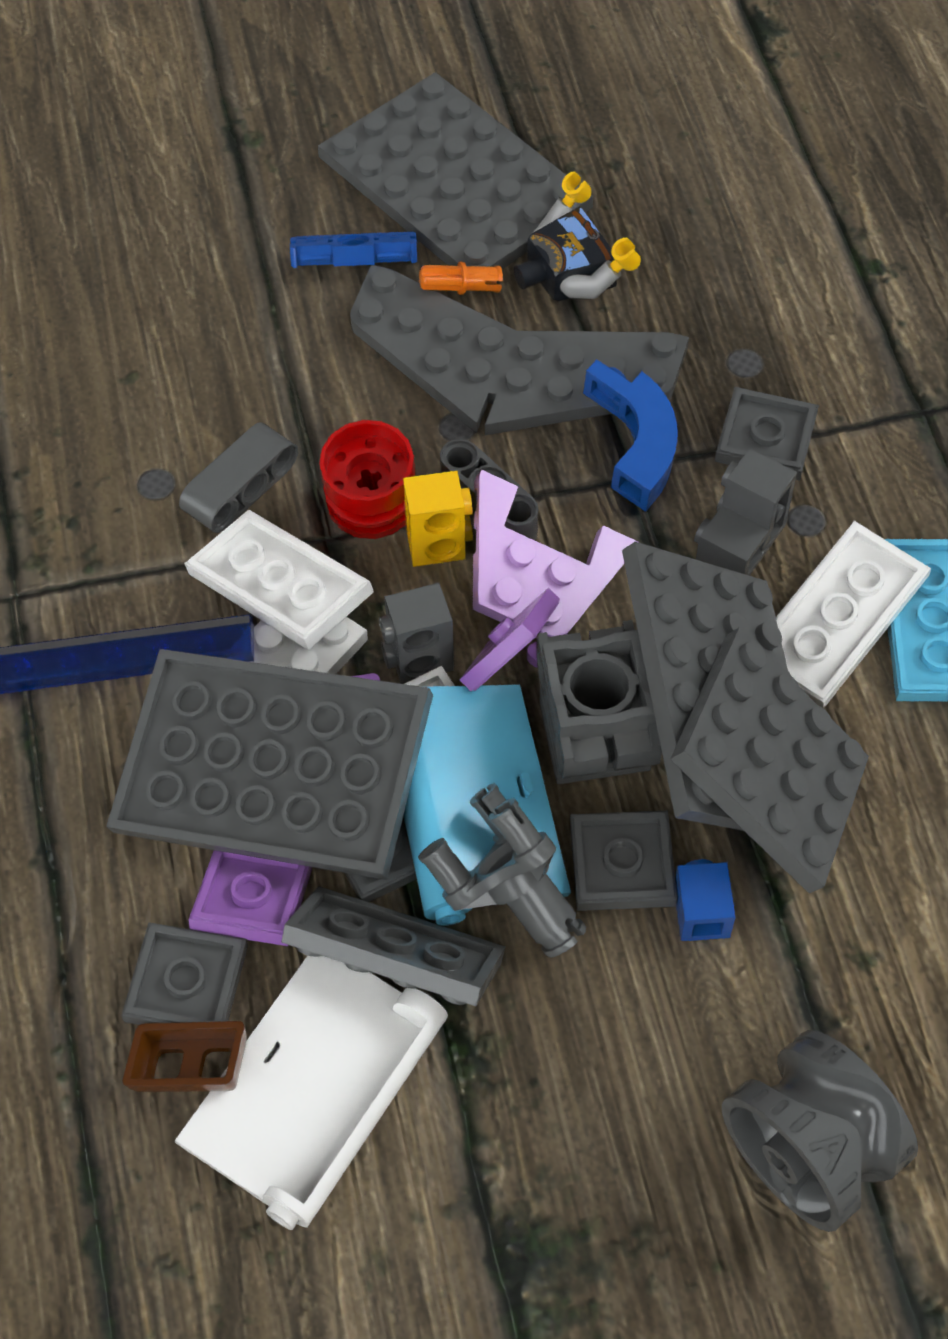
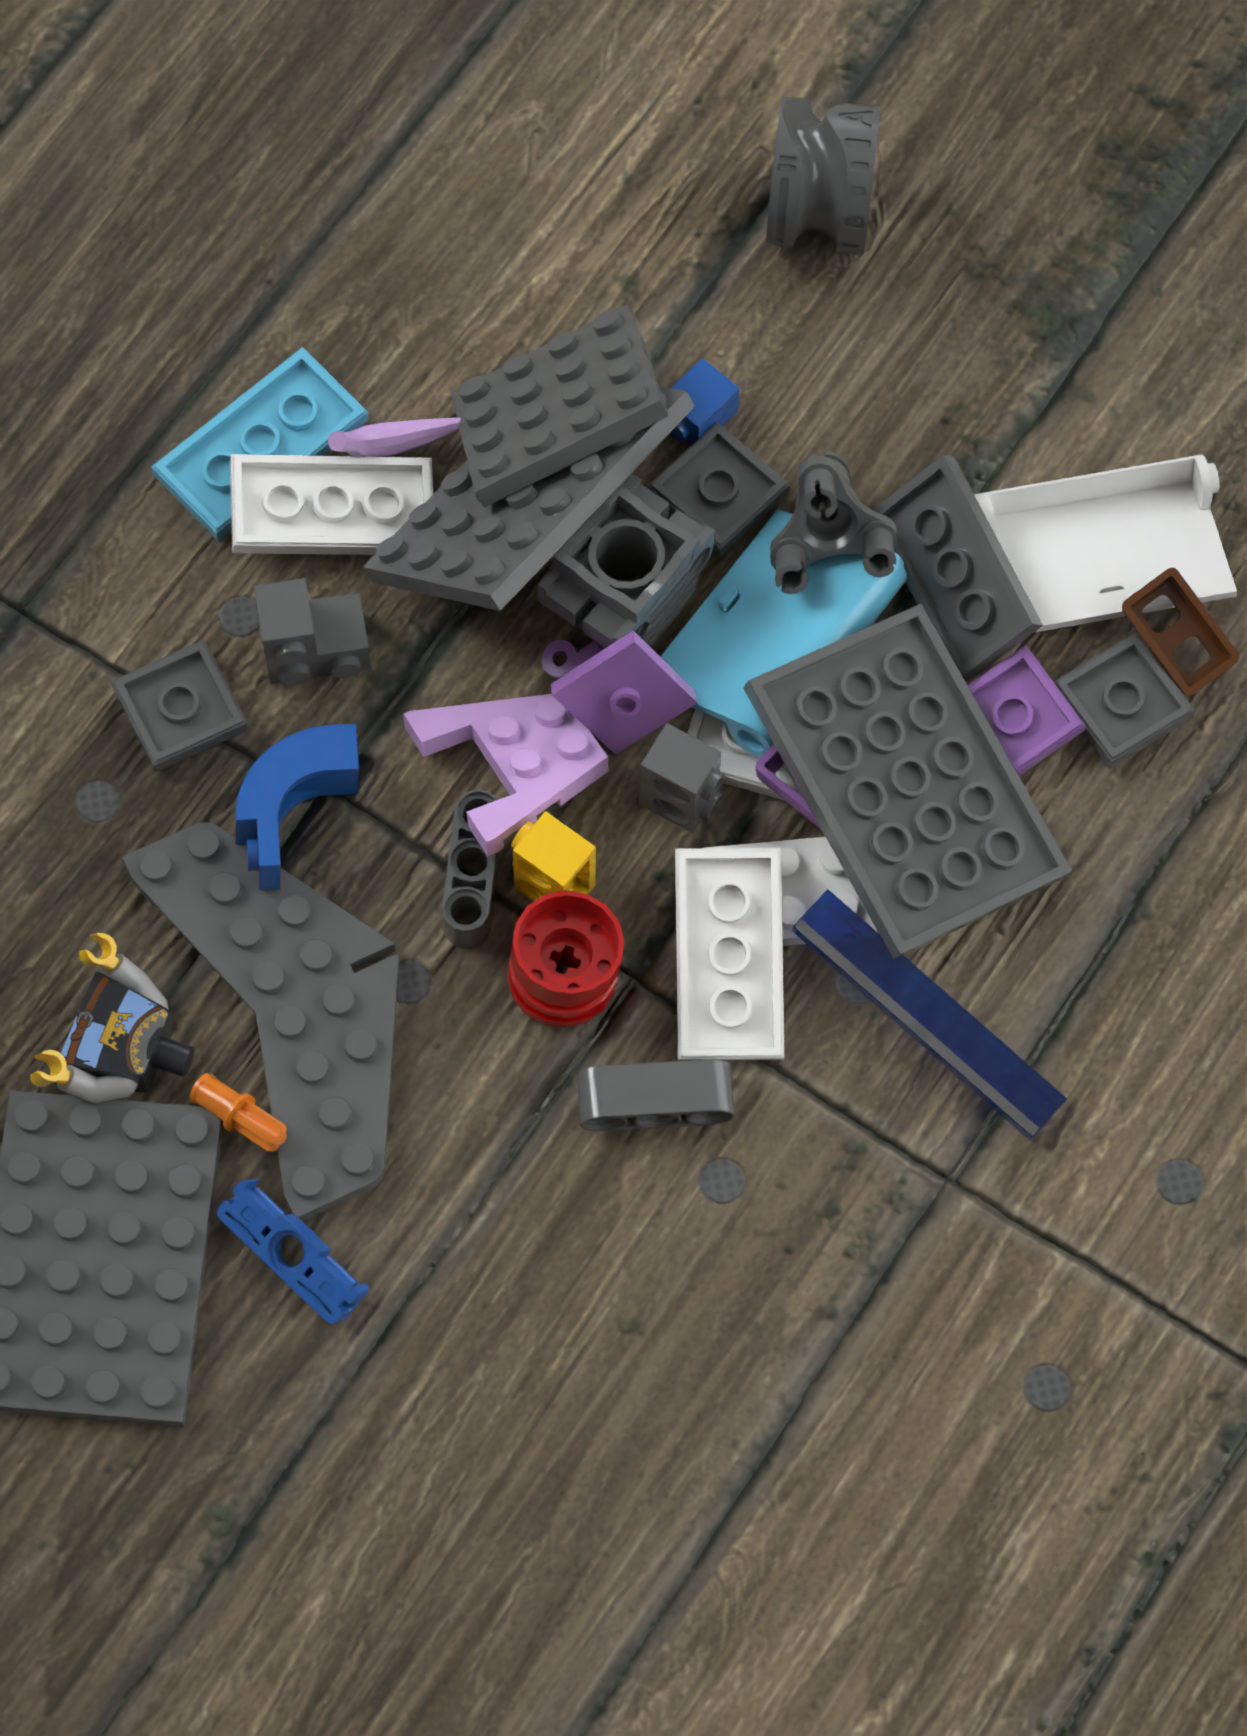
camera: 135 degrees left, 10 degrees up
(867, 677) = (392, 437): none -> lavender piece

